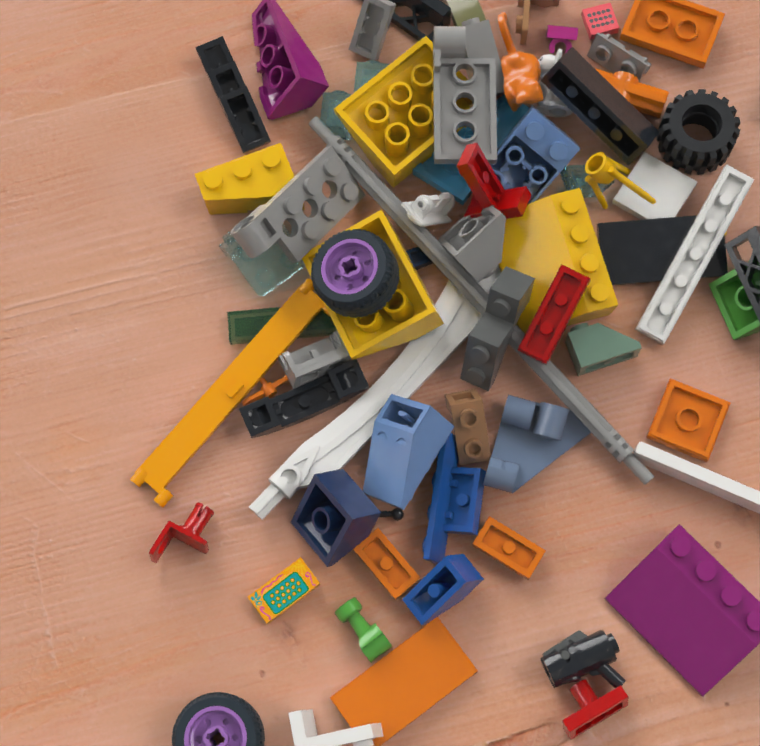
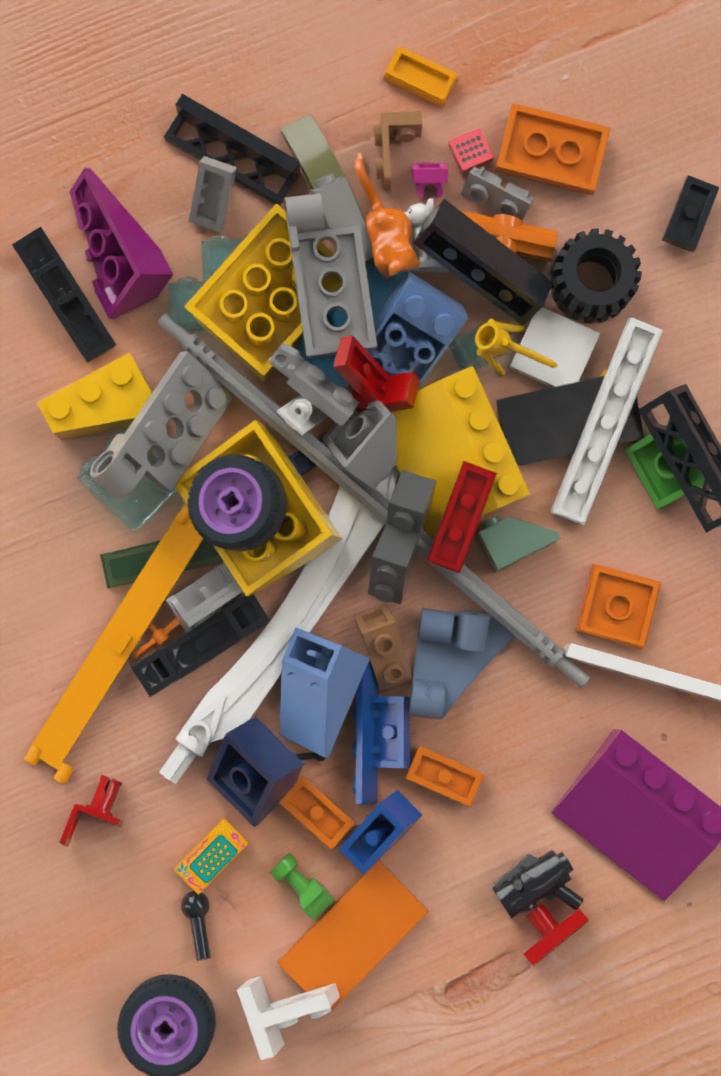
camera: 20 degrees left, 10 degrees up
(262, 636) = (195, 908): none -> black bar
(436, 185) = (313, 384): none -> light grey hinge

